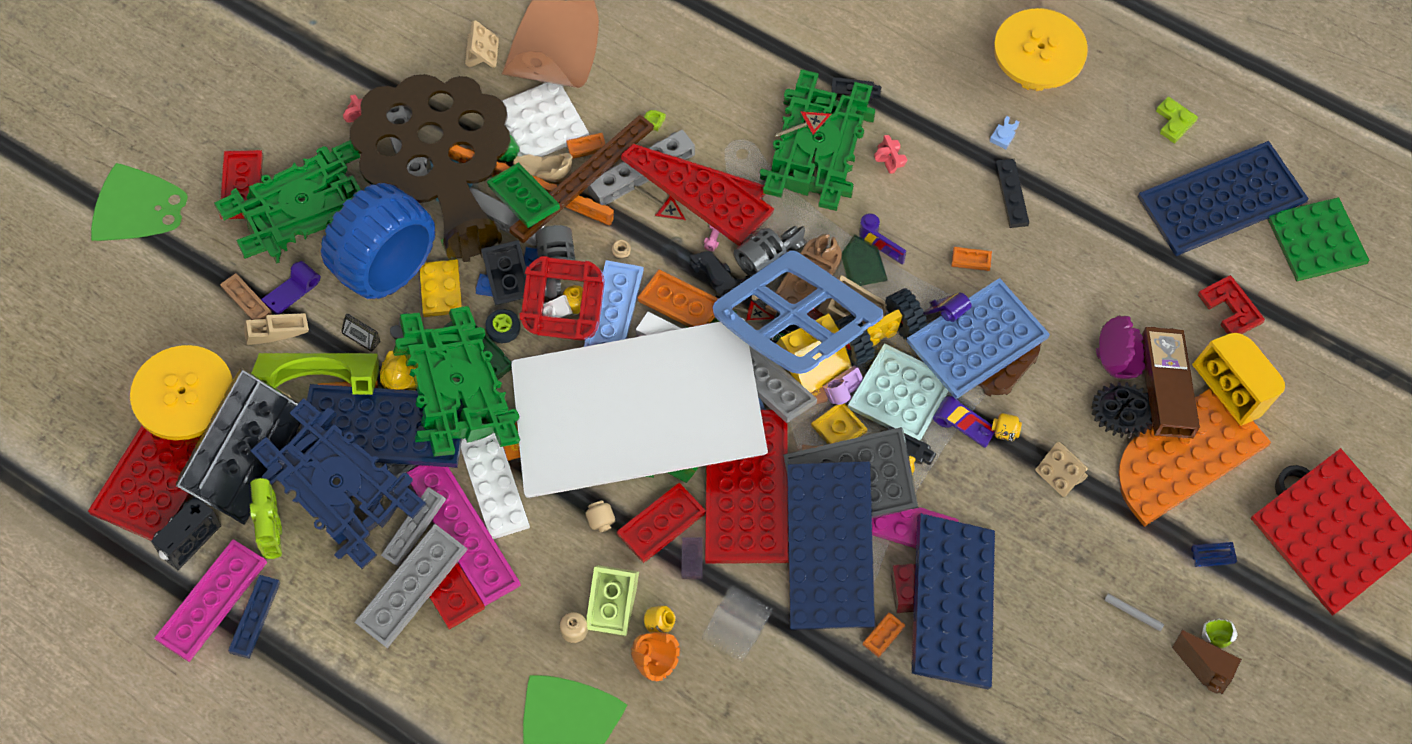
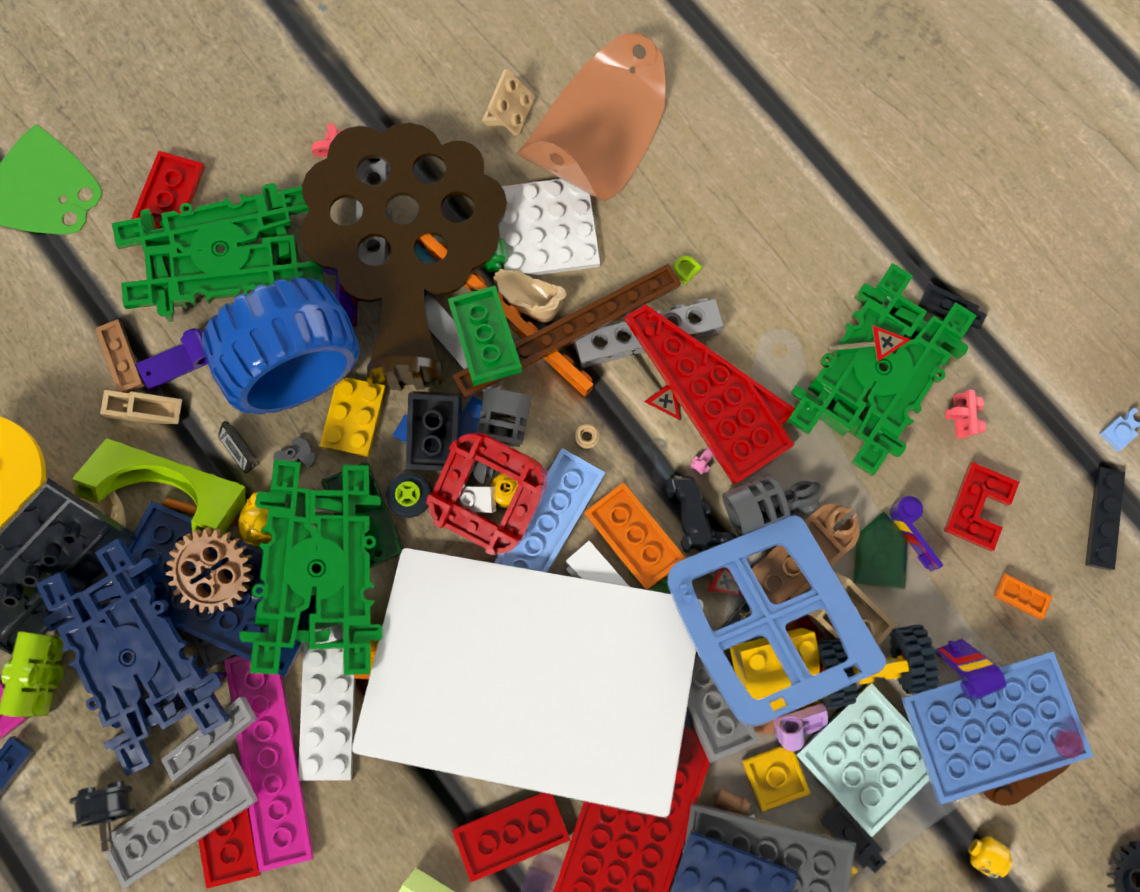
camera: 20 degrees right, 15 degrees up
(350, 594) = (102, 808): none -> black wheel
(361, 395) = (223, 590): none -> medium nougat gear
(585, 145) = (591, 279): orange plate -> none
(600, 516) = (439, 801): tan head -> none
(914, 197) = (964, 517): none -> red plate
(955, 414) = (937, 826): dark purple door -> none
(1028, 329) = (1068, 744): none -> clear pink plate

